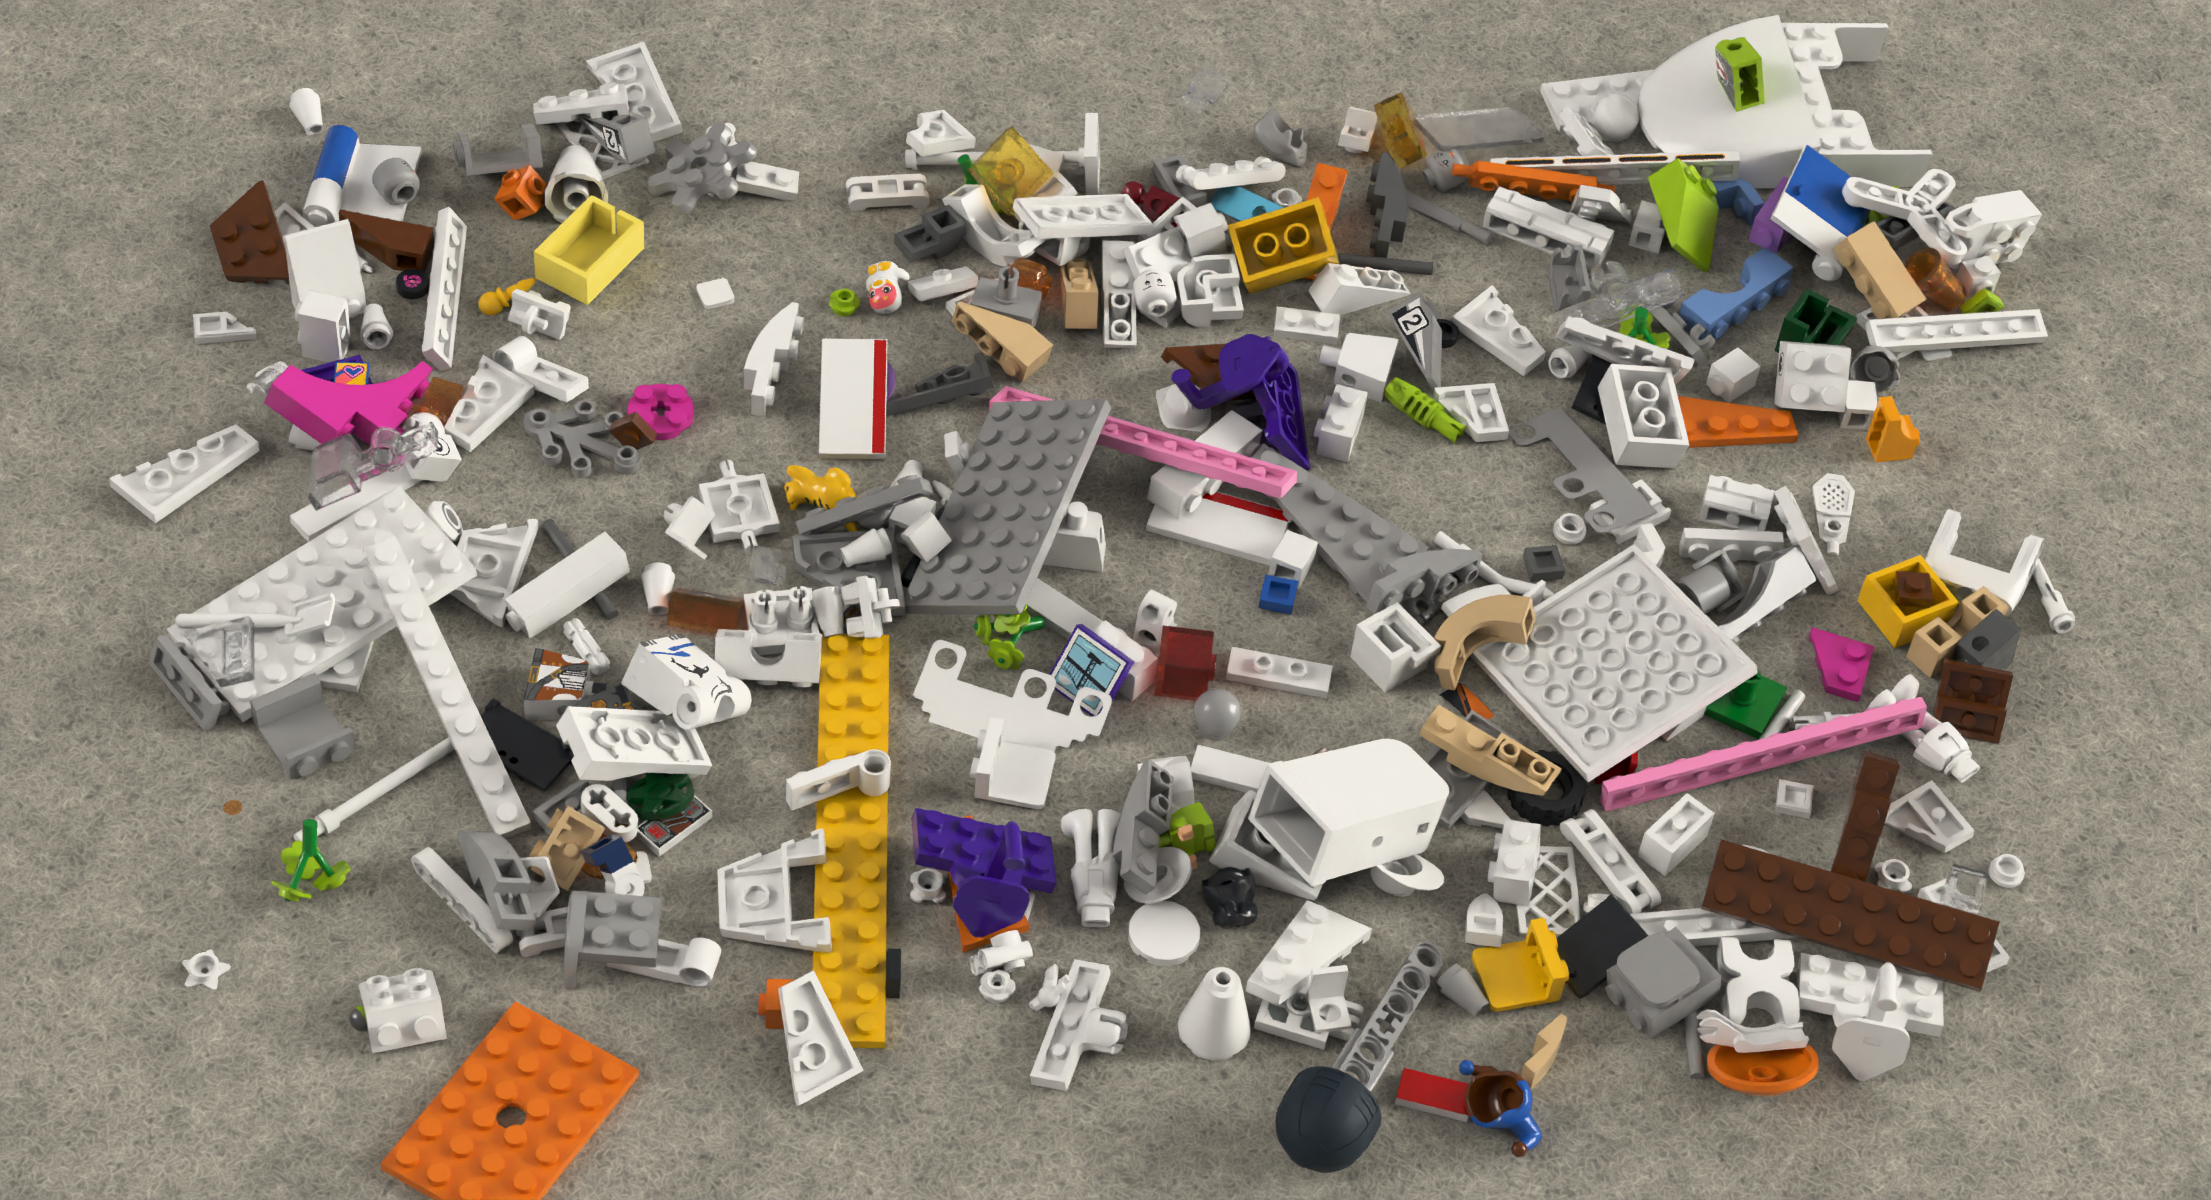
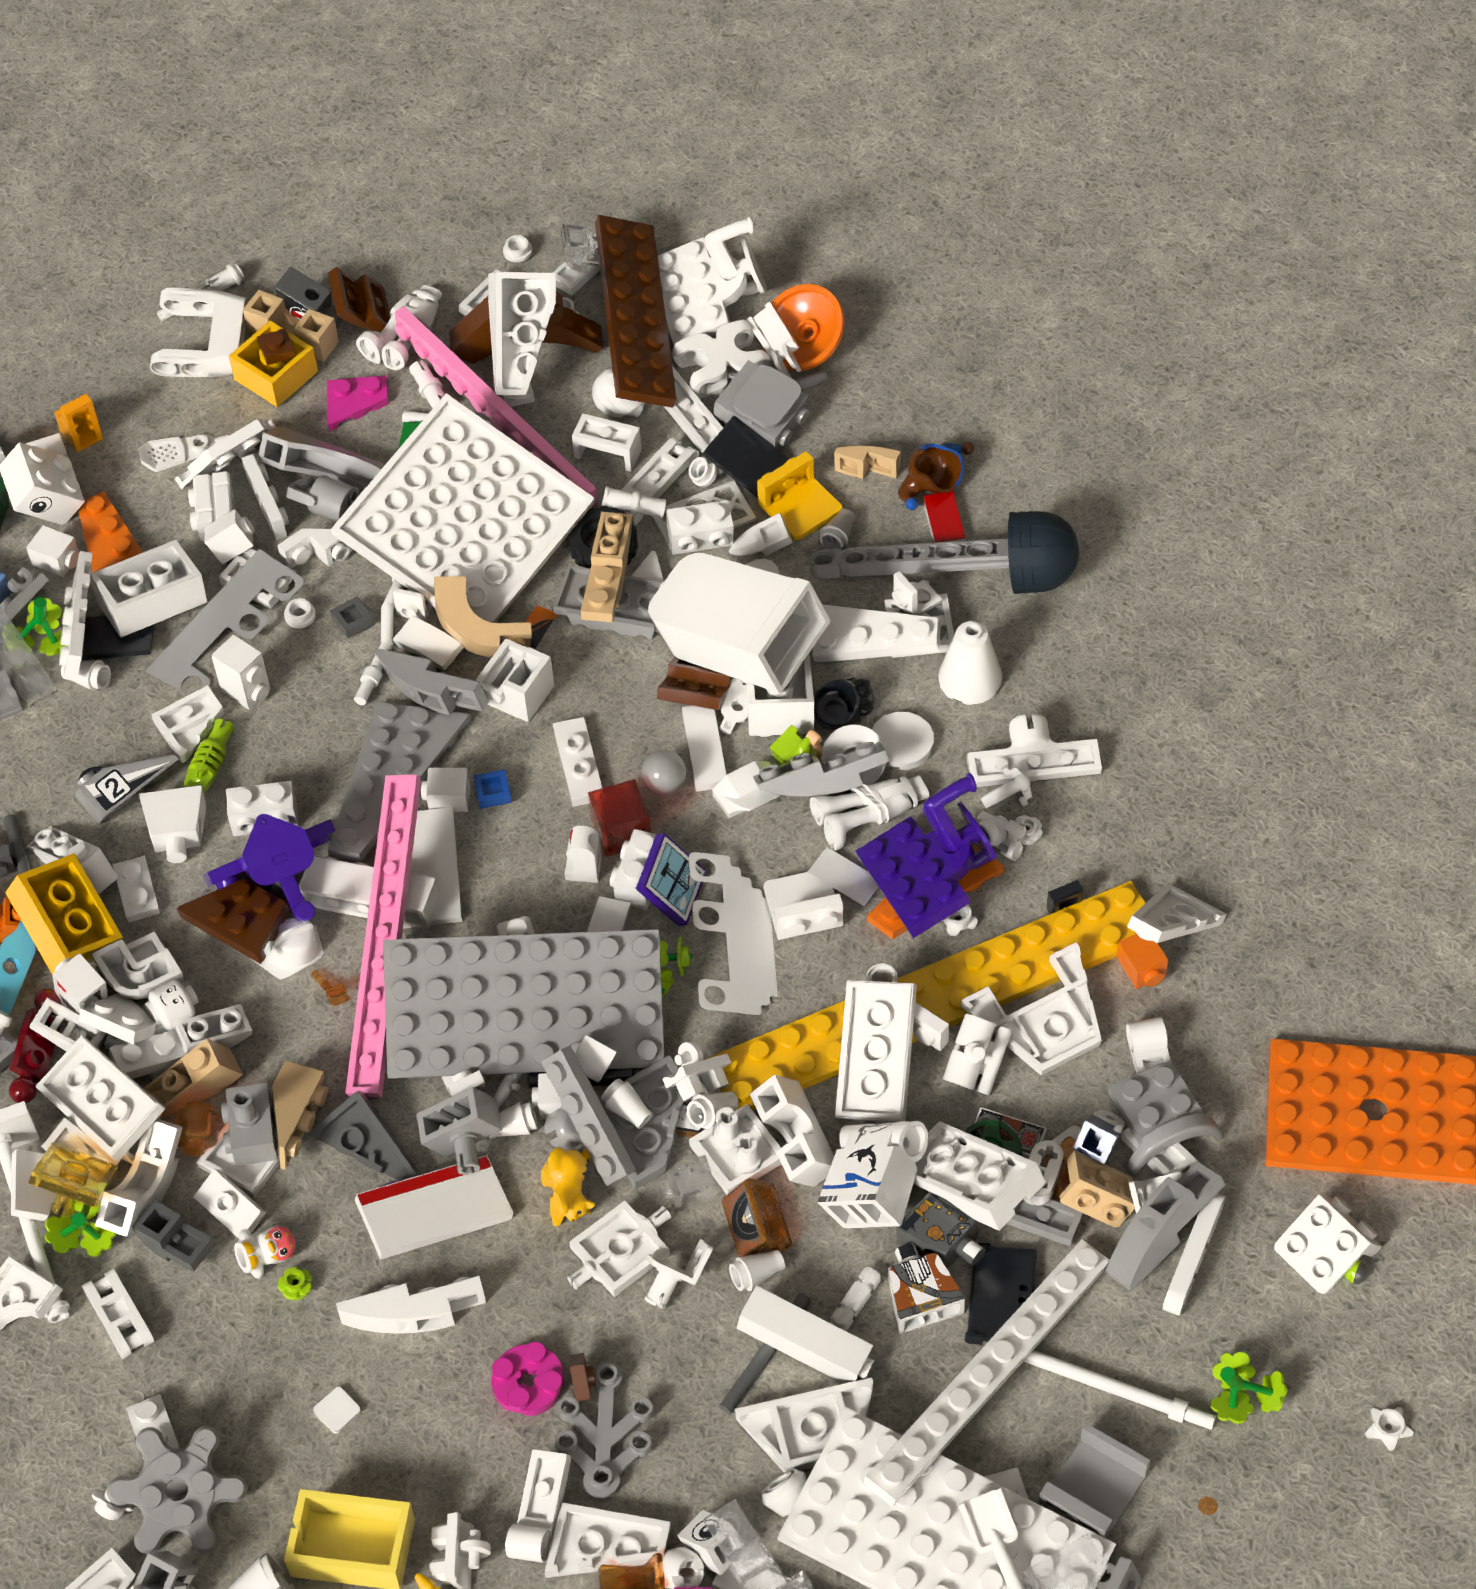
camera: 105 degrees left, 5 degrees up
(761, 815) = (977, 1054): none -> white pin
(807, 738) = (875, 1051): none -> white tile
(915, 432) = (458, 1125): none -> light grey brick
(1032, 813) = (844, 876): none -> white sticker
(1118, 412) = (336, 993): none -> clear orange hand
(1498, 332) = (76, 740): white wing -> none
(1503, 448) = (241, 672): none -> white brick
(1574, 816) = (634, 502): none -> white pin
(1684, 495) = (229, 536): none -> white brick
(1840, 763) = (518, 323): none -> white wedge

